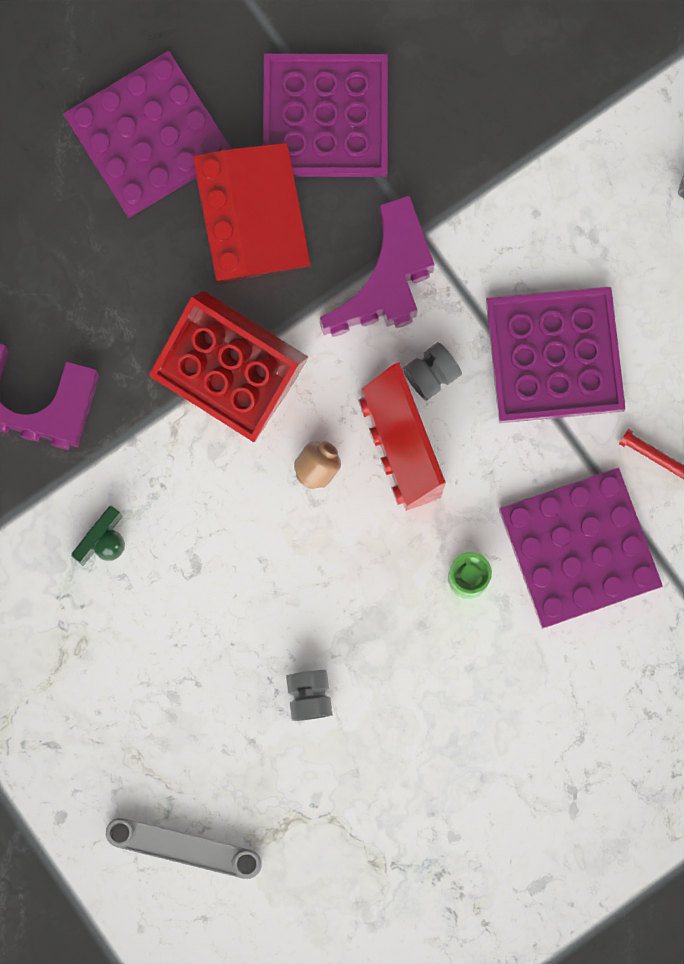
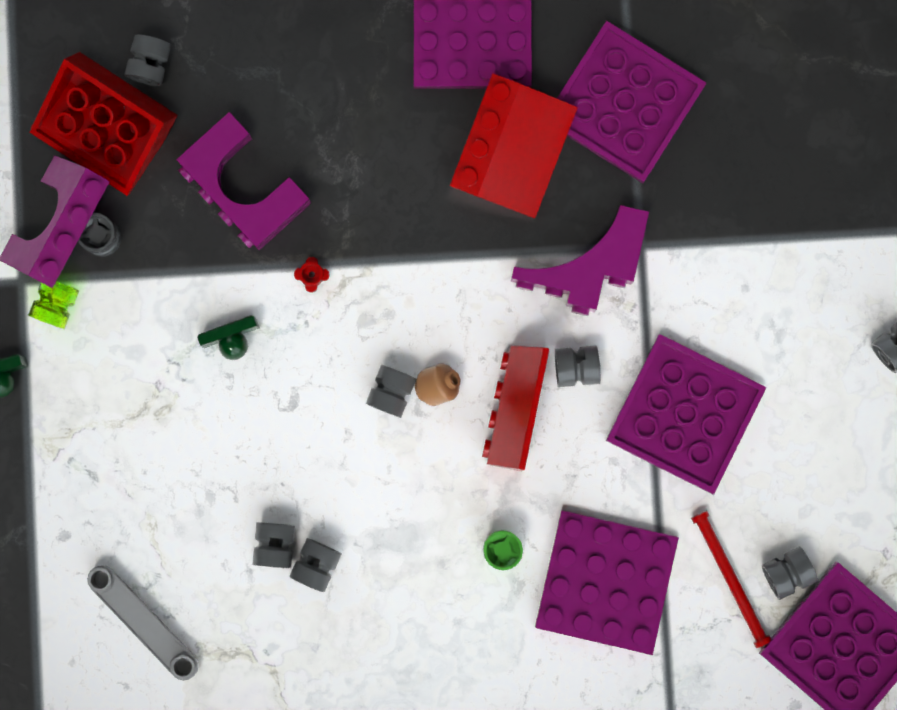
camera: 35 degrees right, 5 degrees up
(136, 430) = (311, 266): none -> red plate
(228, 365) = (417, 259): red slope -> none
(265, 711) = (272, 555): none -> dark grey wheel
(278, 496) = (391, 391): none -> dark grey wheel

